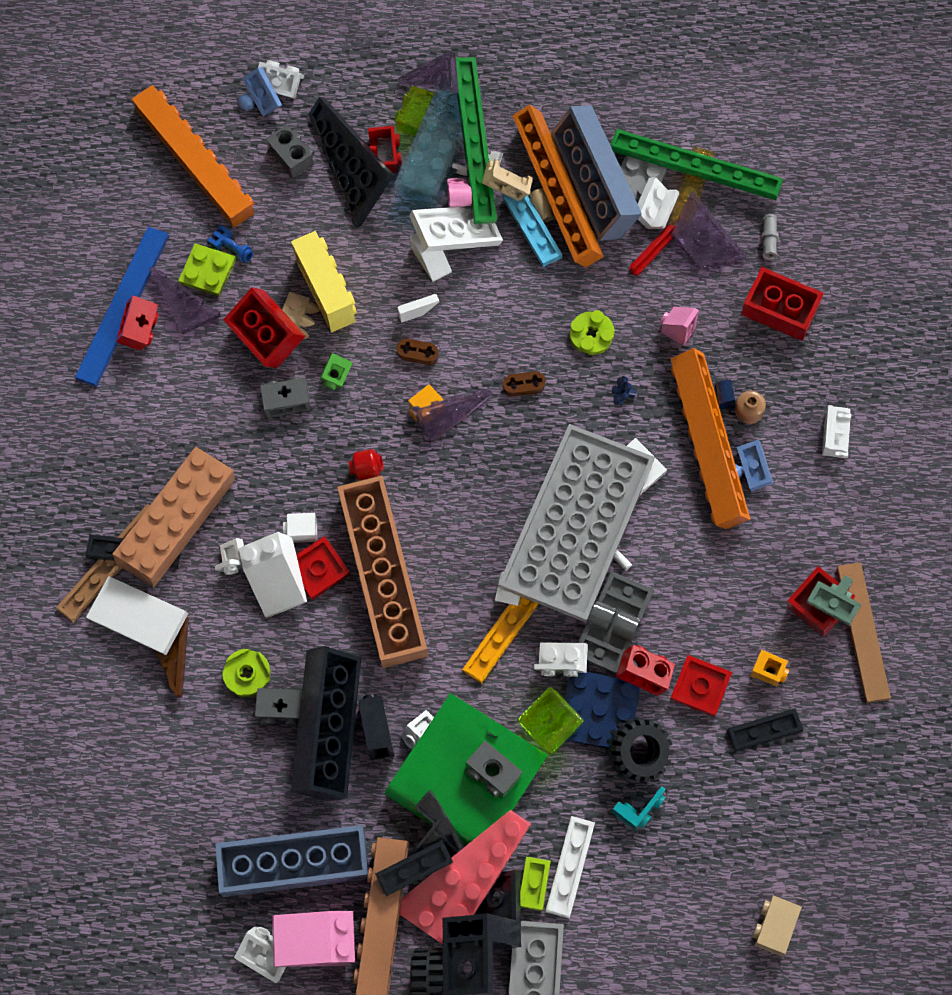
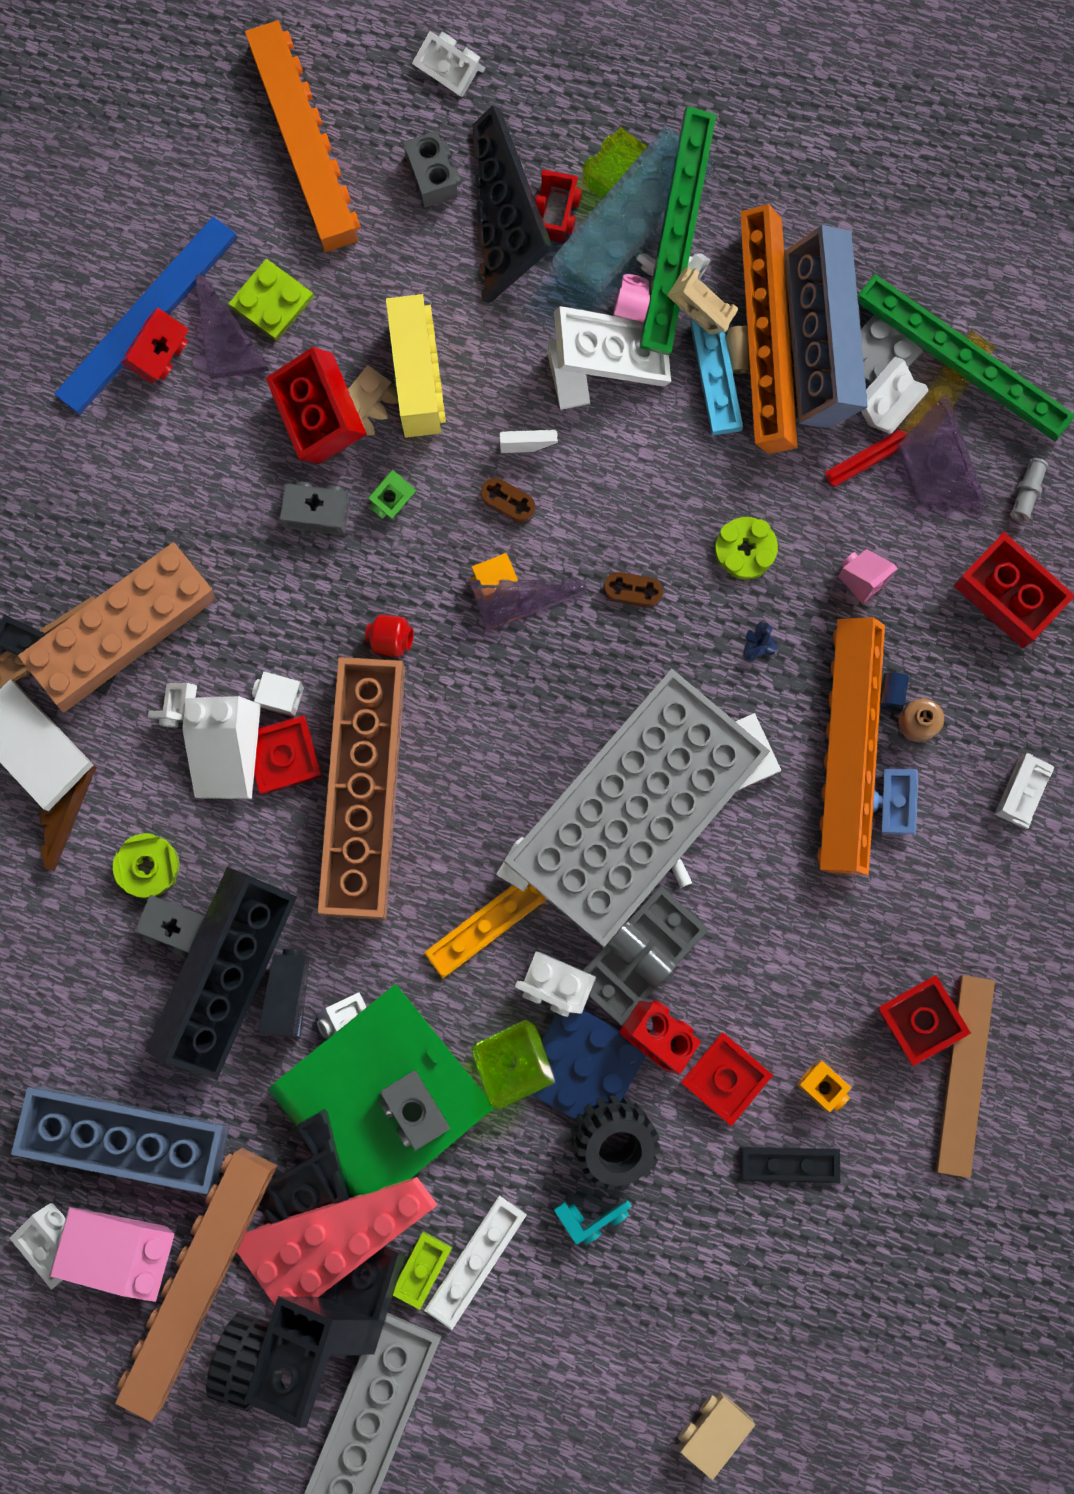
camera: 15 degrees right, 10 degrees up
(244, 253) = (325, 292): blue hinge -> none
(260, 93) = (418, 75): medium blue plate -> none
(413, 868) = (266, 1210): black tile -> none
(435, 74) = (655, 121): clear purple wing -> none
(835, 600) = (943, 1034): sand green hinge -> none

